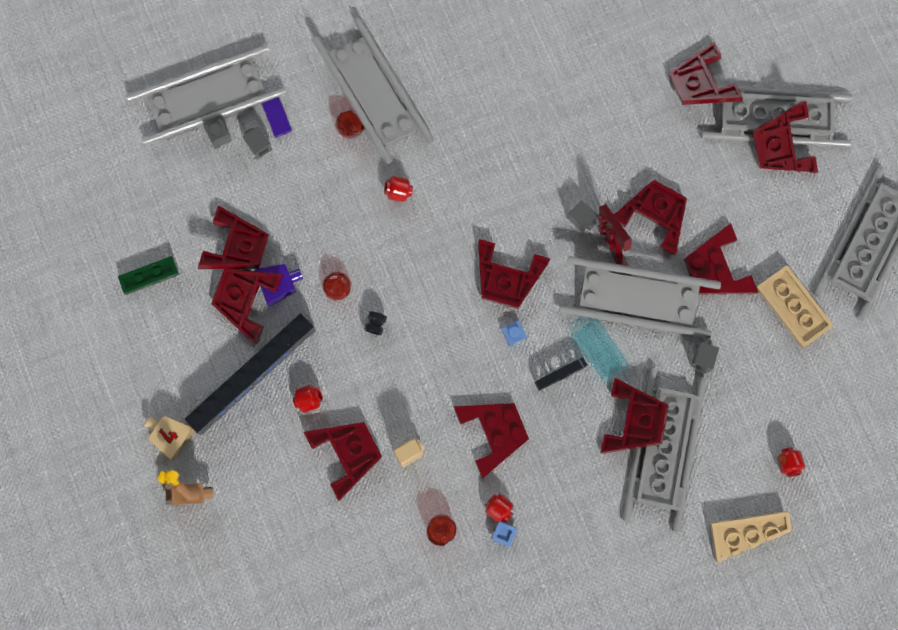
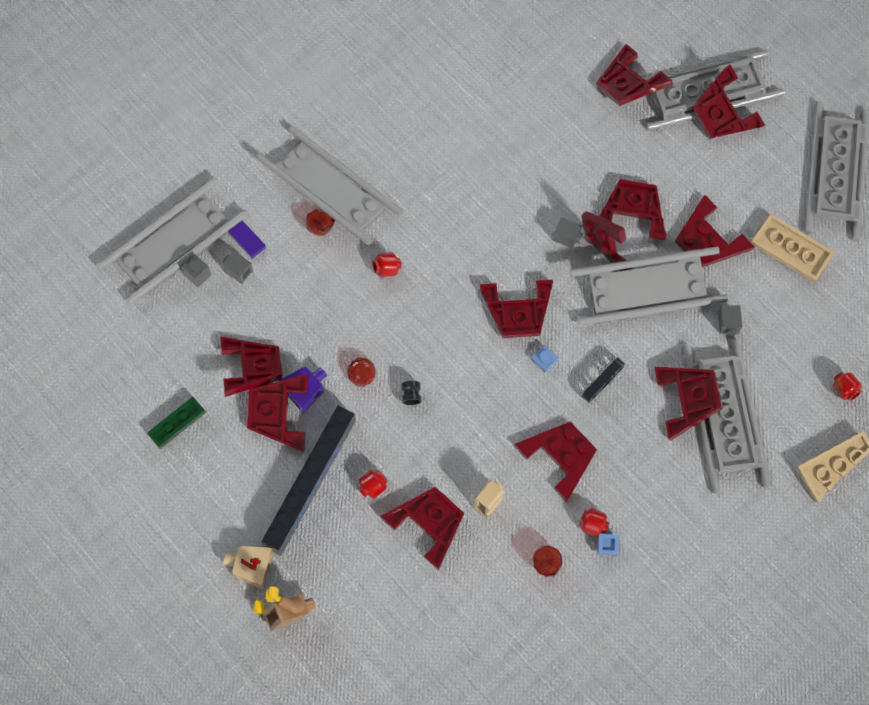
camera: 15 degrees left, 10 degrees down
(600, 350) = (631, 347): clear light blue piece -> none

